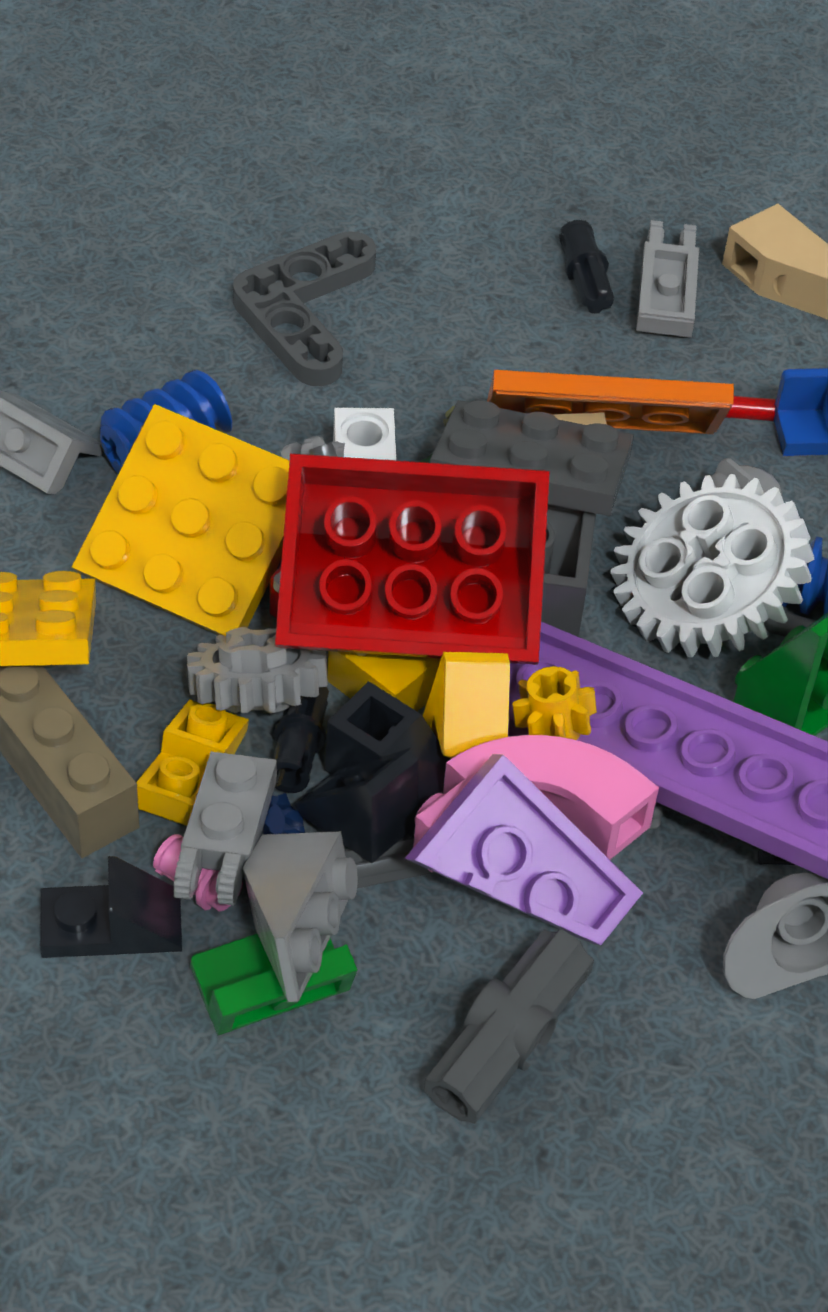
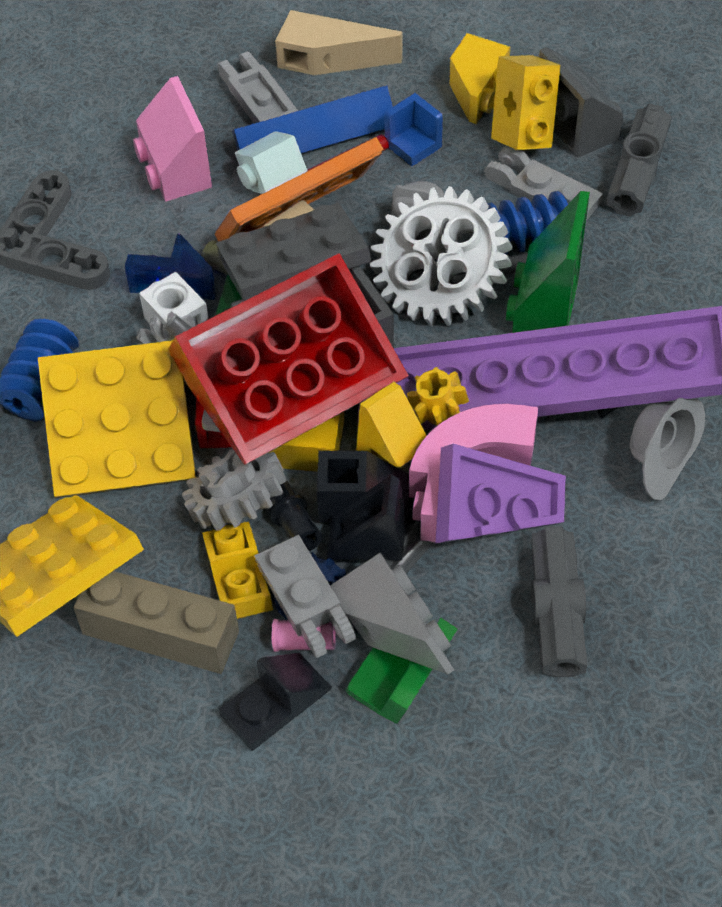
camera: 30 degrees left, 5 degrees up
(413, 407) = (185, 260): none -> clear blue slope
(514, 278) = (173, 144): none -> bright pink slope
(586, 265) = (210, 118): black axle -> none
(607, 350) = (270, 162): none -> light aqua brick
(694, 345) = (325, 122): none -> blue tile

